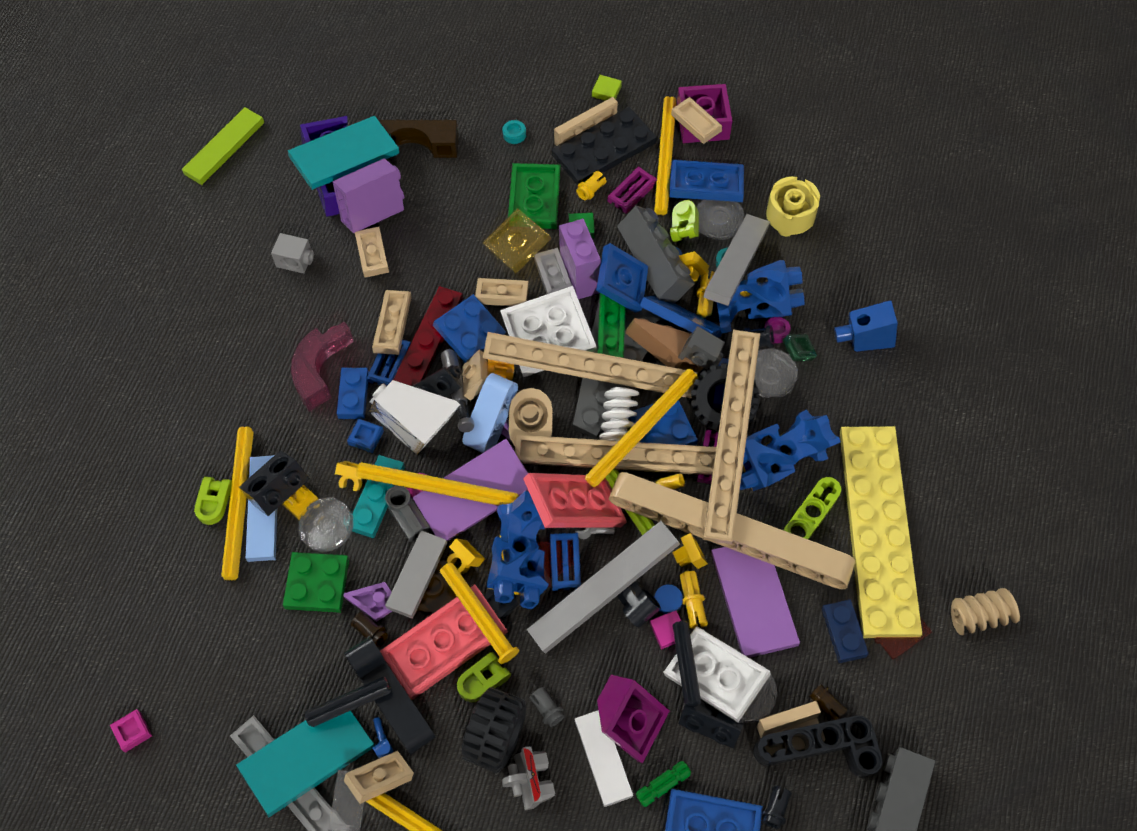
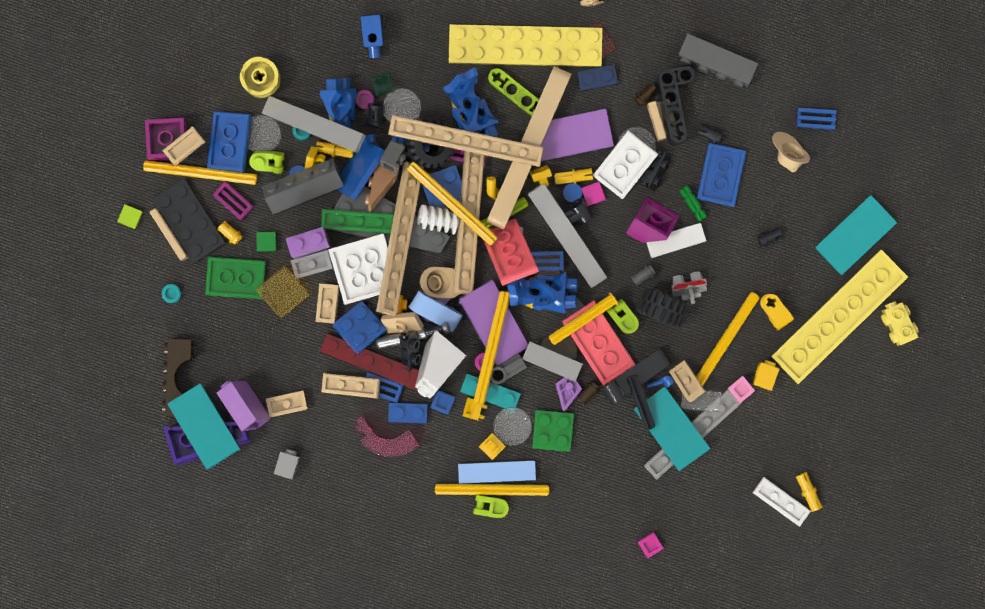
camera: 90 degrees left, 25 degrees up
(223, 145) = (176, 529): lime tile -> none
(274, 483) = (483, 463): black brick -> none
(466, 553) = (537, 327): yellow tile -> none
(622, 277) = (331, 211): blue plate -> none
(686, 664) = (621, 183): black axle -> none

